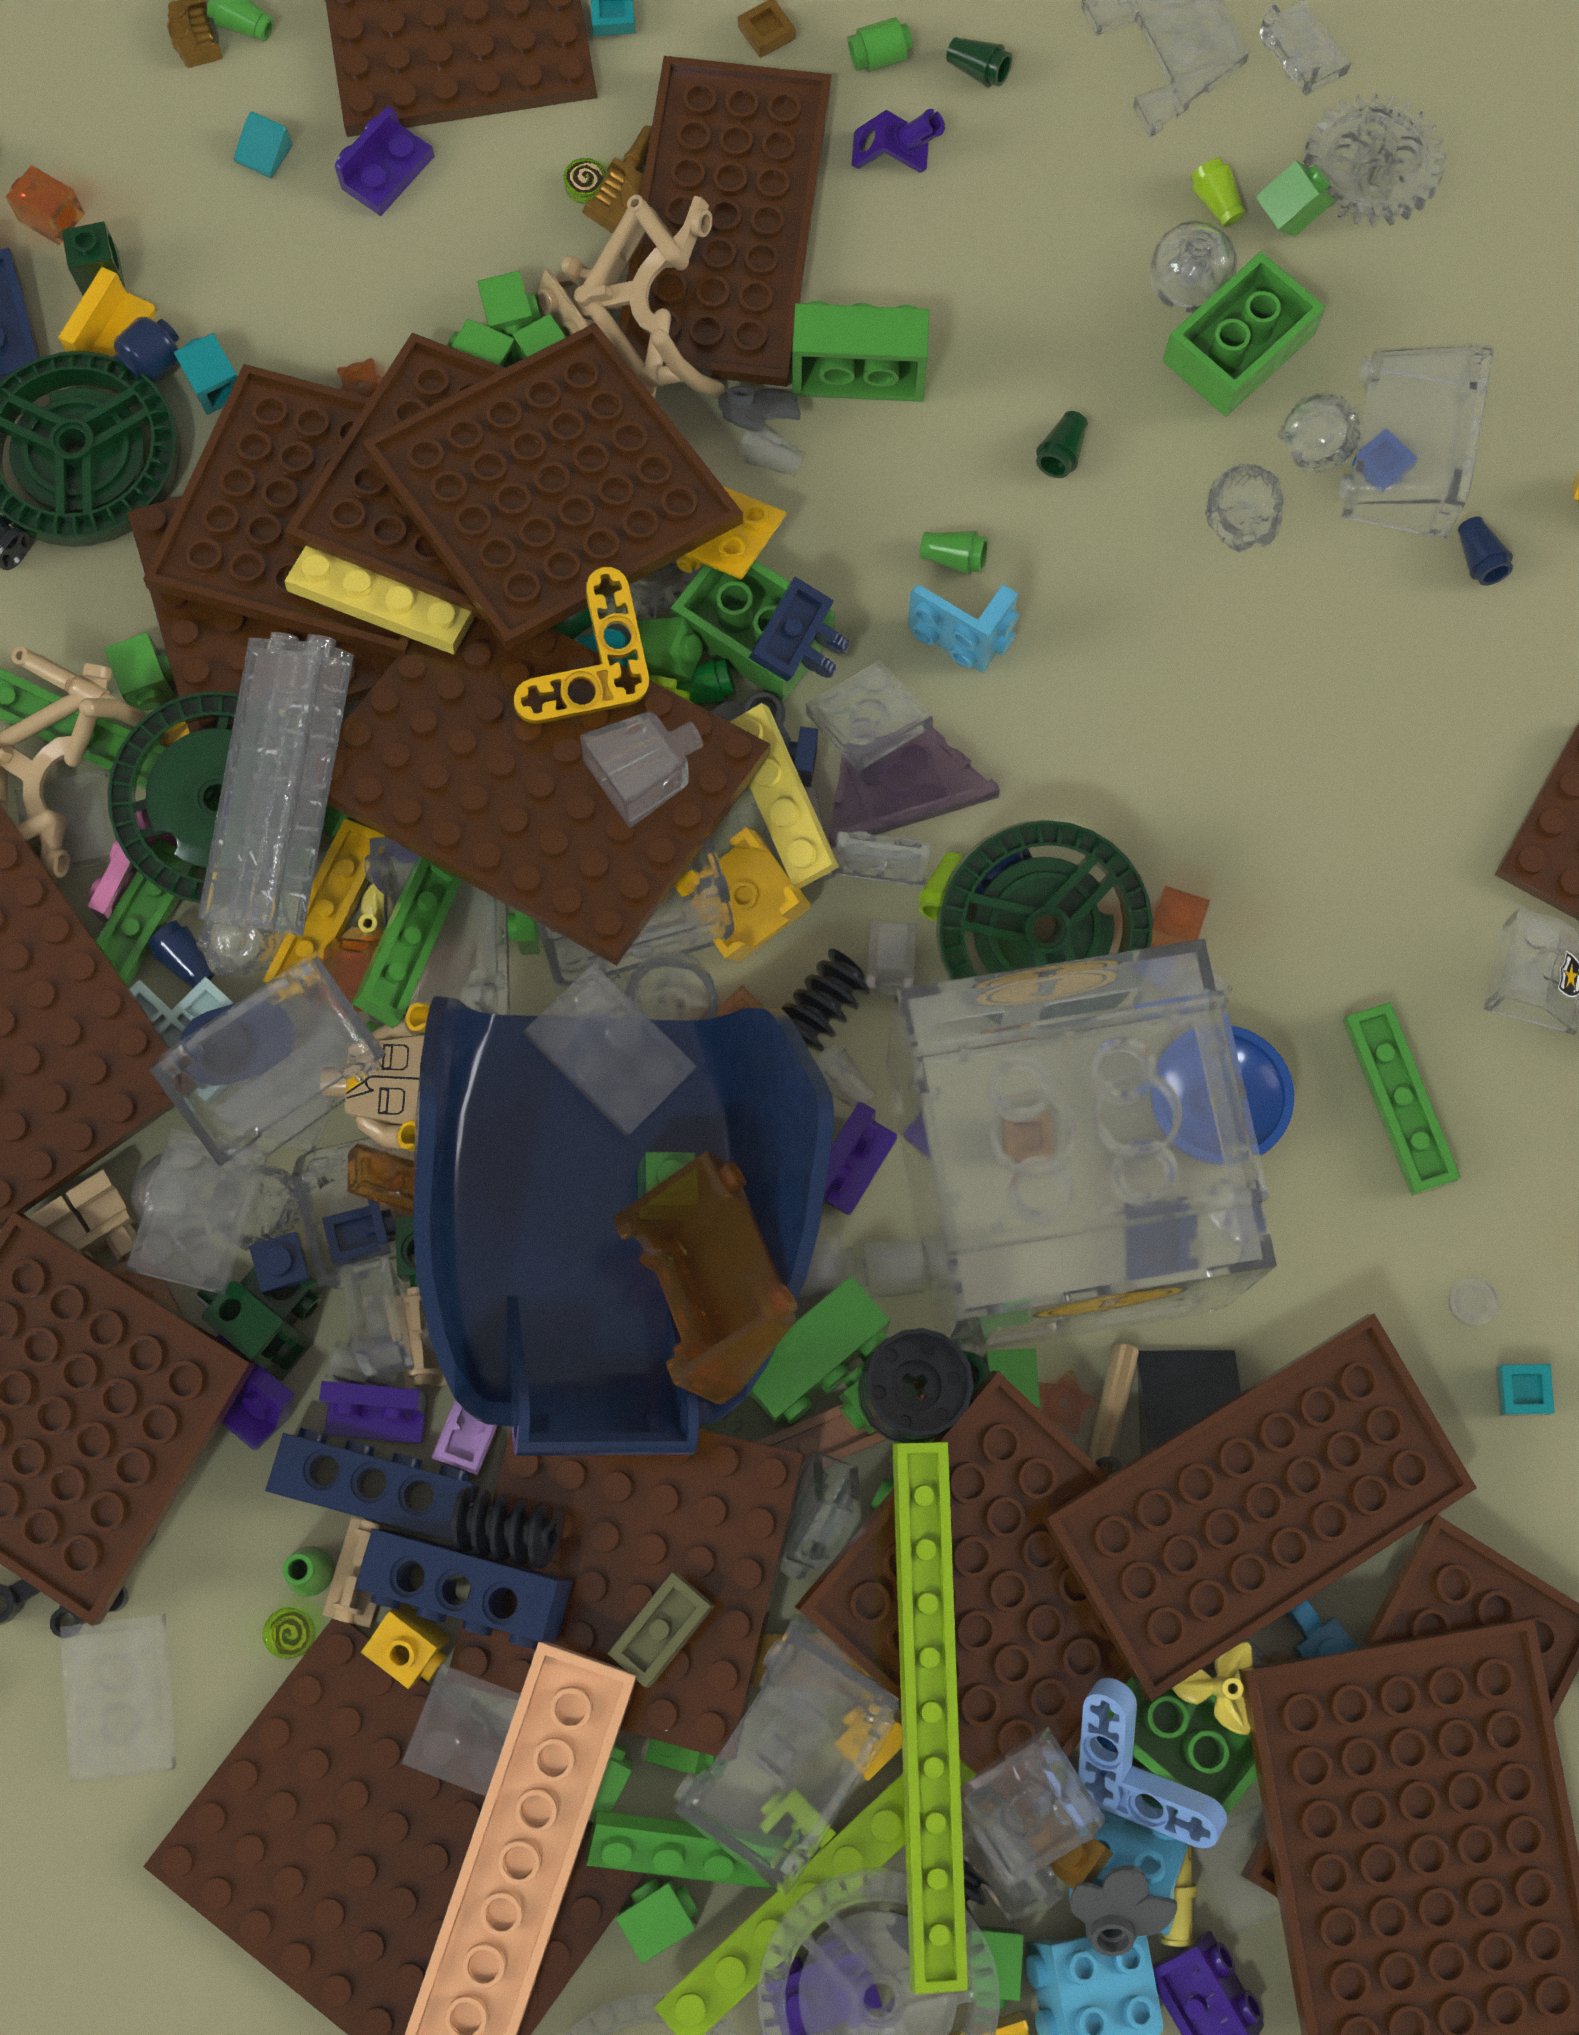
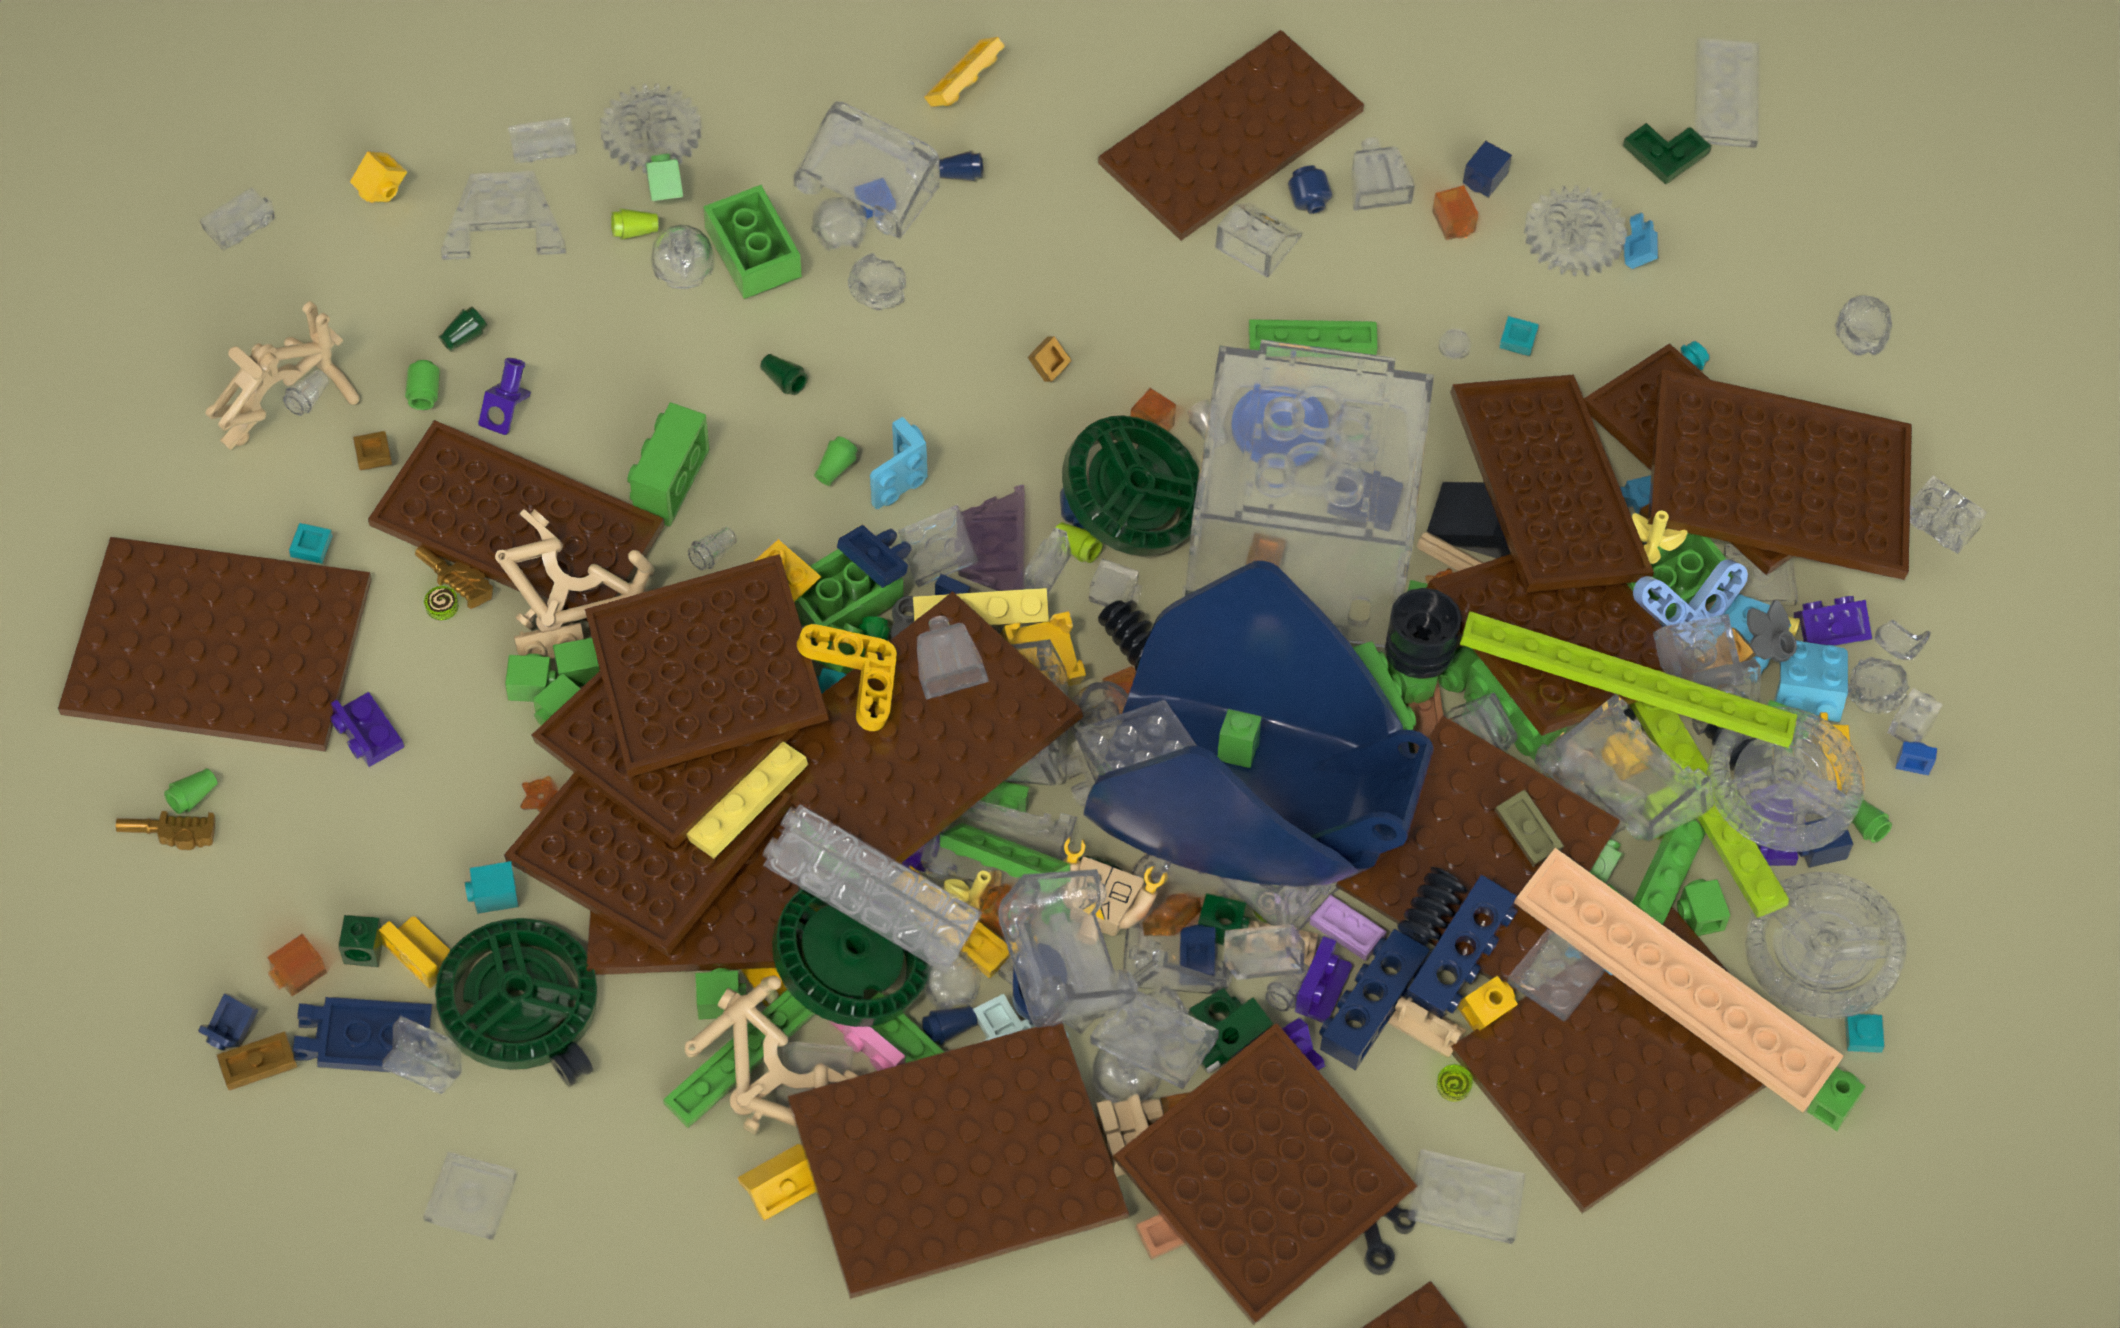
camera: 75 degrees left, 15 degrees down
(147, 348) = (455, 920): dark blue head -> none
(262, 145) = (311, 805): teal slope -> none
(280, 1263) = (1206, 1001): dark blue plate -> none
(318, 1574) = (1417, 1054): bright green cone -> none
(713, 1275) = (1322, 705): clear orange windscreen -> none
(752, 408) = (678, 543): dark grey plate -> none
(1218, 760) = (1049, 359): none -> pearl gold plate

